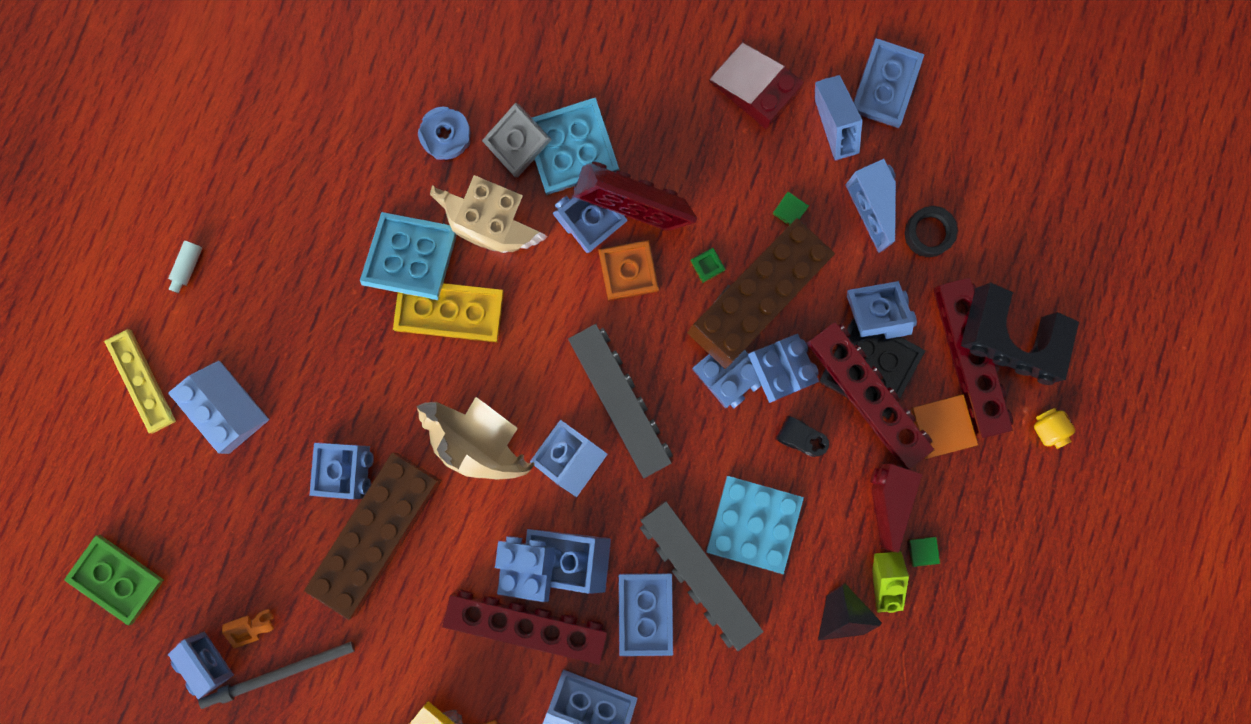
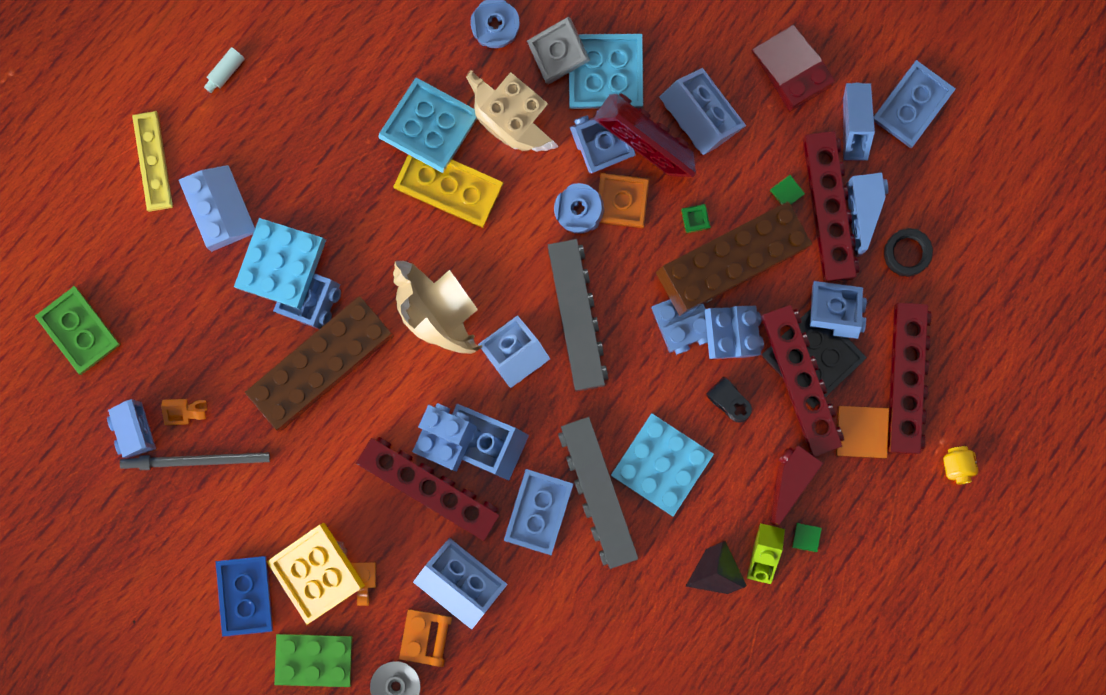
camera: 20 degrees right, 0 degrees up
(301, 445) = (280, 263): none -> medium azure plate
(576, 283) = (589, 218): none -> medium blue plate
(679, 155) = (702, 111): none -> light blue slope
(819, 149) = (831, 269): none -> dark red brick
(988, 337) = (924, 362): black arch -> none

